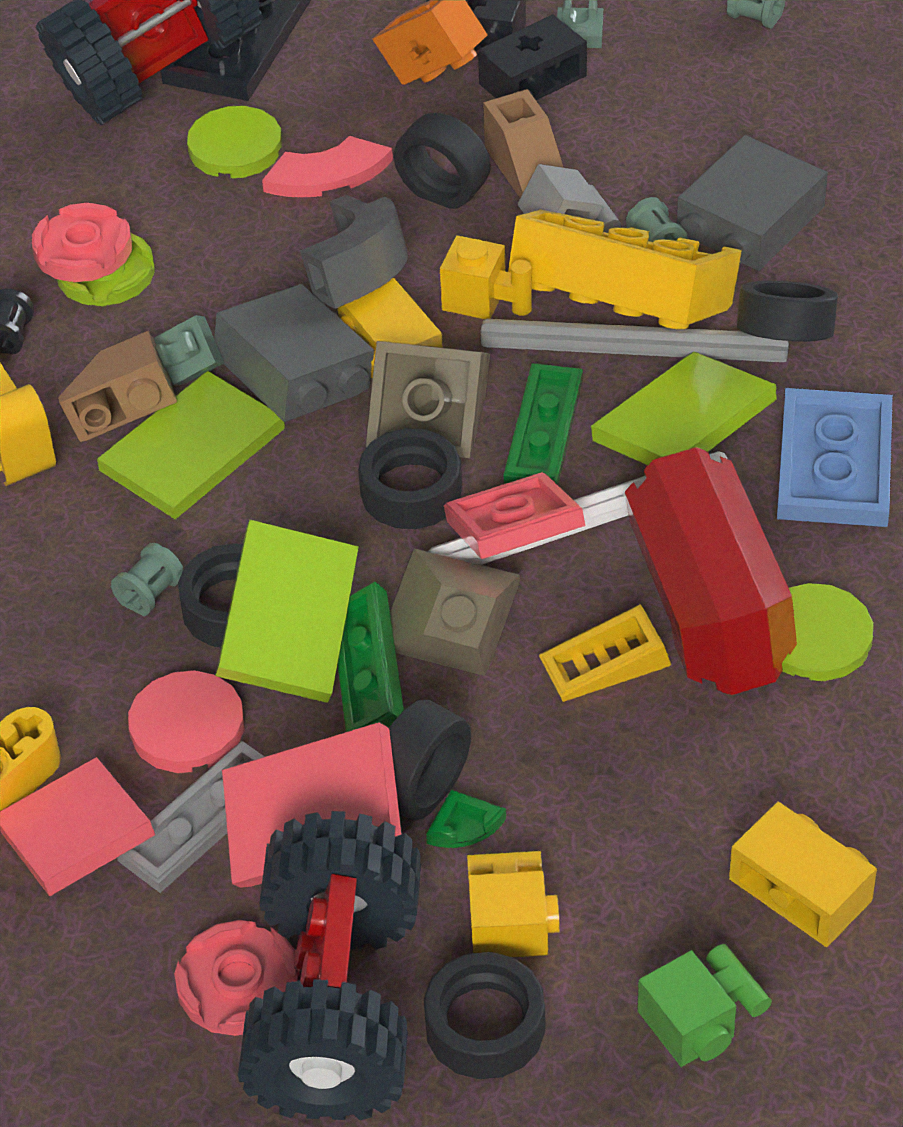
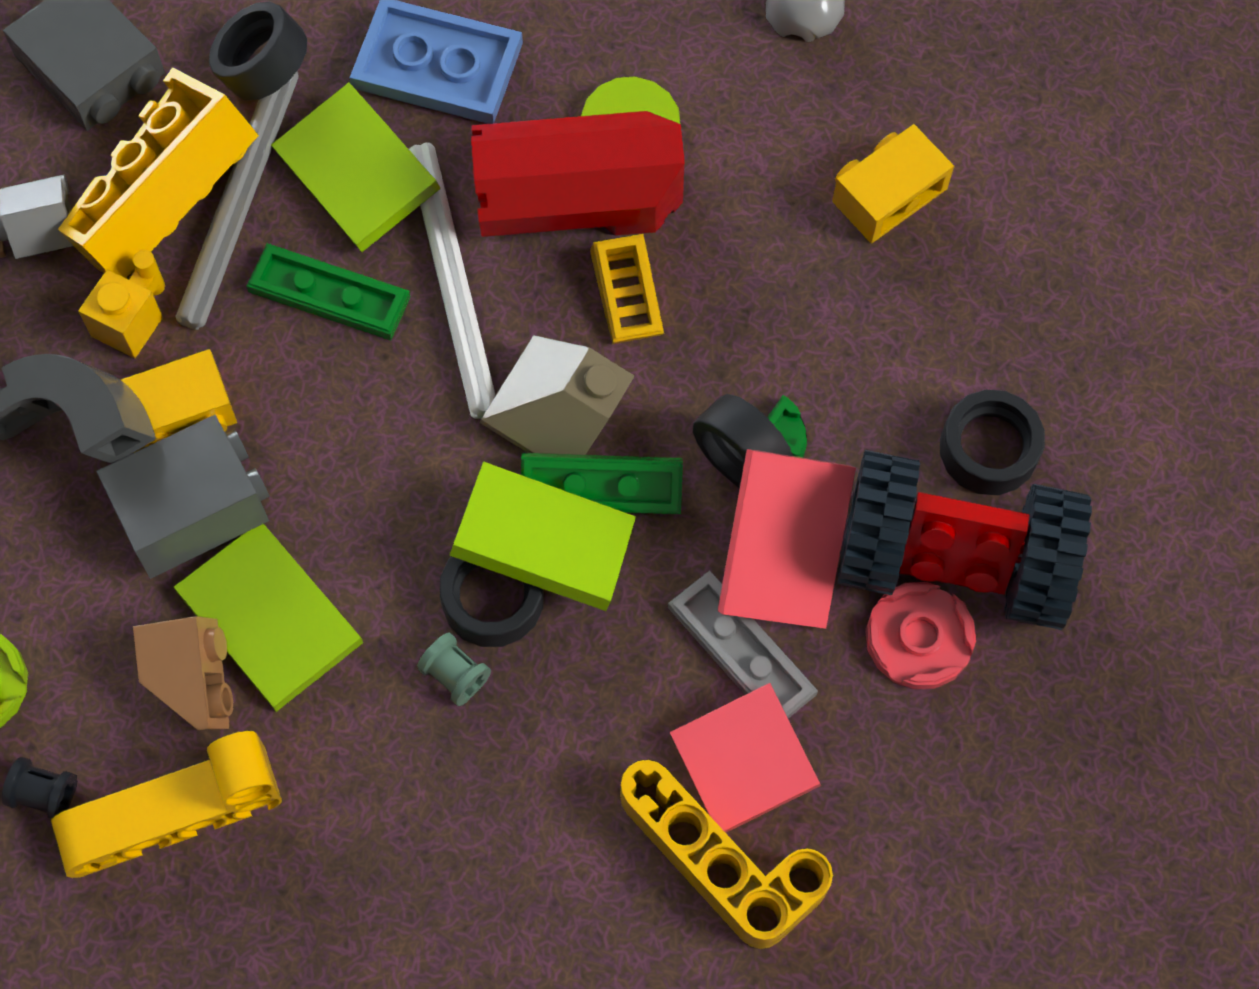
camera: 85 degrees left, 20 degrees up
(186, 721) = (631, 652): coral tile -> none
(188, 350) = (148, 596): sand green tile -> none
(403, 448) = (372, 377): black tyre -> none
(428, 391) = (280, 376): dark tan slope -> none
(510, 904) = (897, 405): yellow brick -> none
(513, 515) = (461, 327): coral tile -> none
(659, 226) = (91, 141): sand green bush -> none
(697, 1010) = (1004, 288): bright green brick -> none

